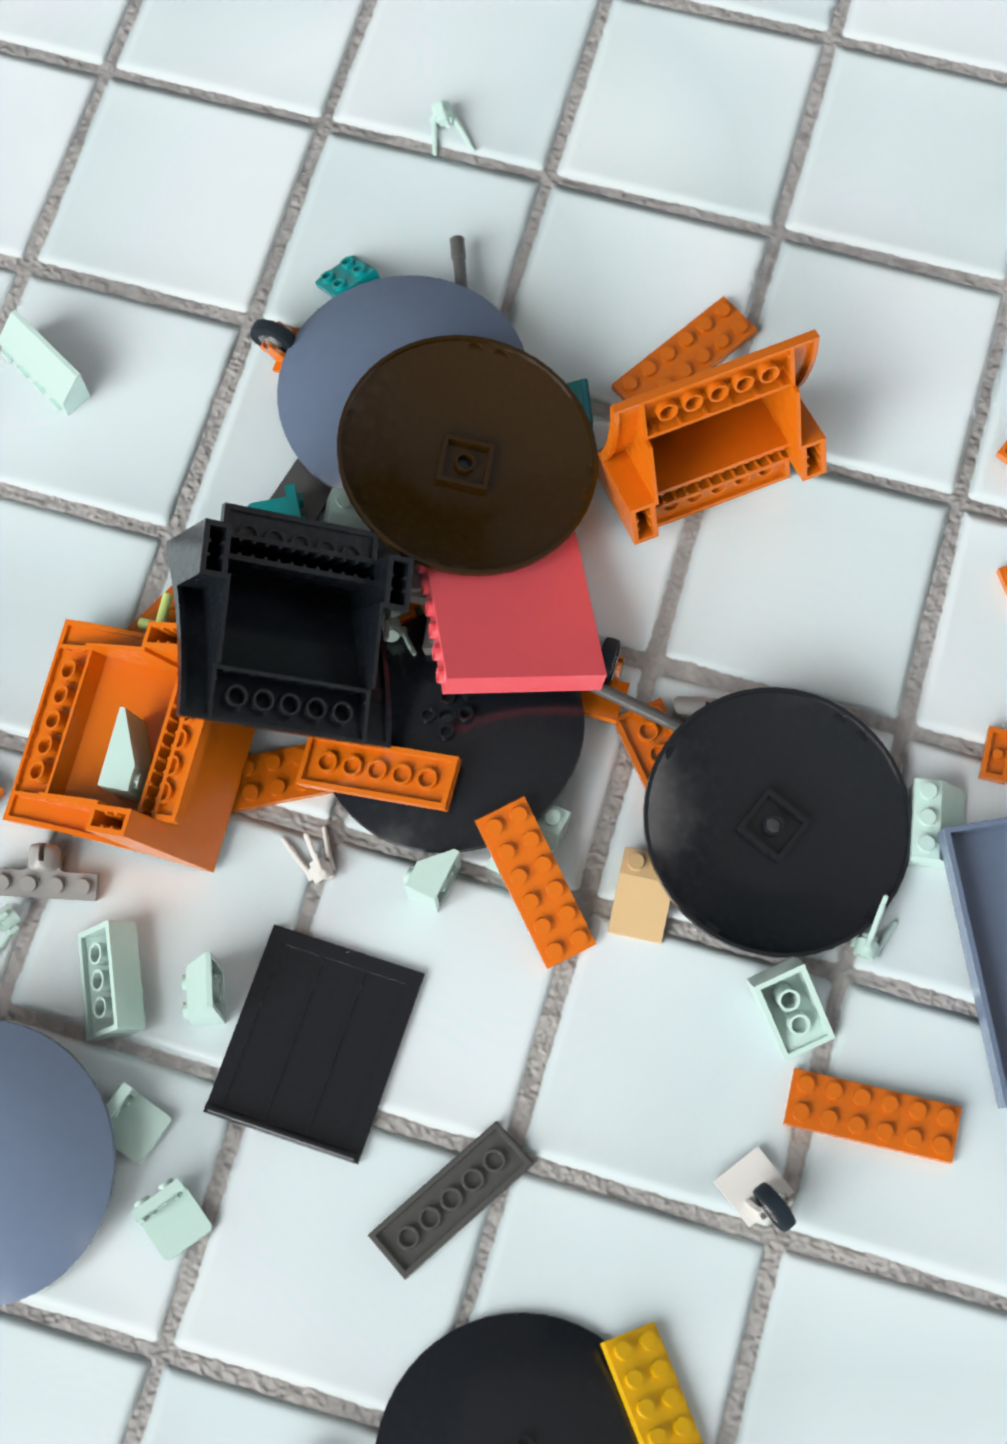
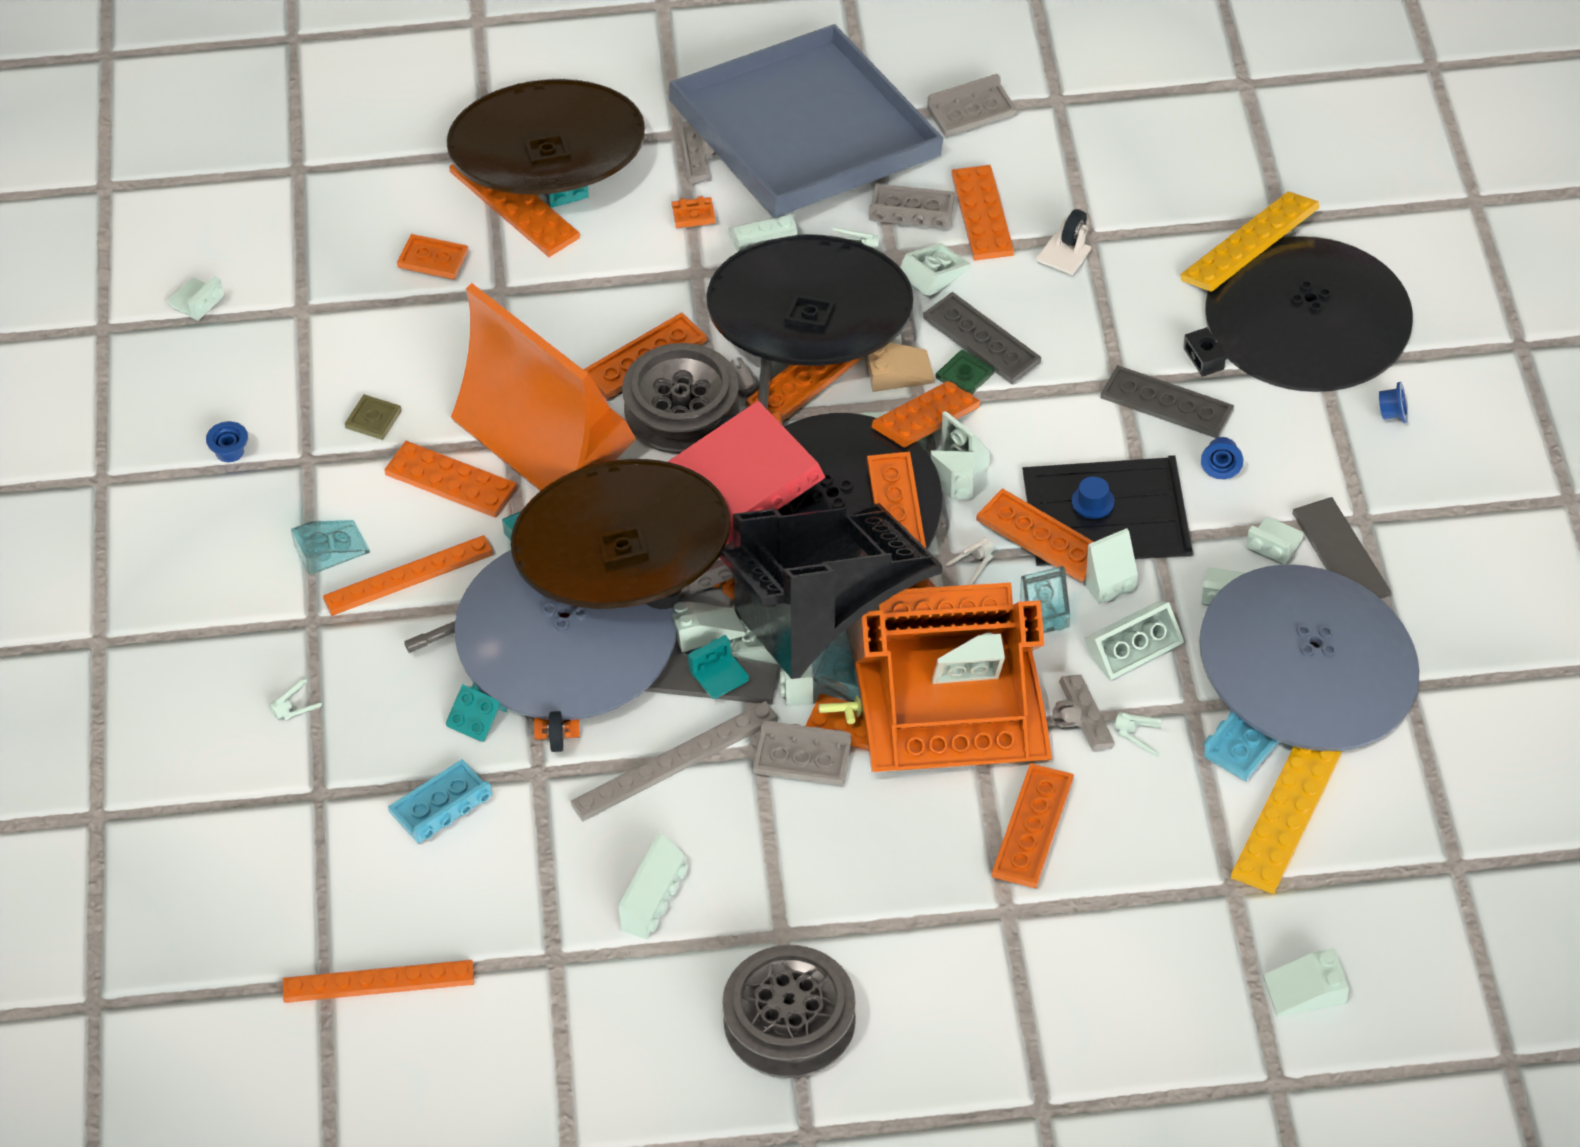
camera: 115 degrees left, 20 degrees down
(79, 112) = (378, 981): none -> orange plate
(126, 1296) = (1339, 545): none -> dark grey tile
(132, 570) = (802, 753): none -> light grey bracket
(192, 892) = (1051, 589): none -> clear light blue slope
(195, 428) = (672, 761): none -> light grey plate
(253, 219) = (440, 801): none -> medium azure bracket
(303, 943) = (1037, 533): none -> orange plate
(319, 1214) = (1222, 458): none -> blue piece
(332, 1030) = (1093, 498): none -> blue piece
(469, 907) = (959, 438): none -> light aqua slope
(489, 1275) = (1204, 351): none -> black brick
(566, 280) = (407, 575): none -> orange plate
(603, 972) = (965, 372): none -> clear green plate
(640, 213) = (328, 543): none -> clear light blue slope
(649, 1015) = (982, 337): none -> dark grey plate
(706, 582) = (679, 395): none -> flat silver wheel
(783, 616) = (611, 369): none -> orange plate
(811, 309) = (373, 417): none -> olive tile
(825, 153) = (227, 441): none -> blue piece
(911, 1027) = (912, 206): none -> light grey bracket

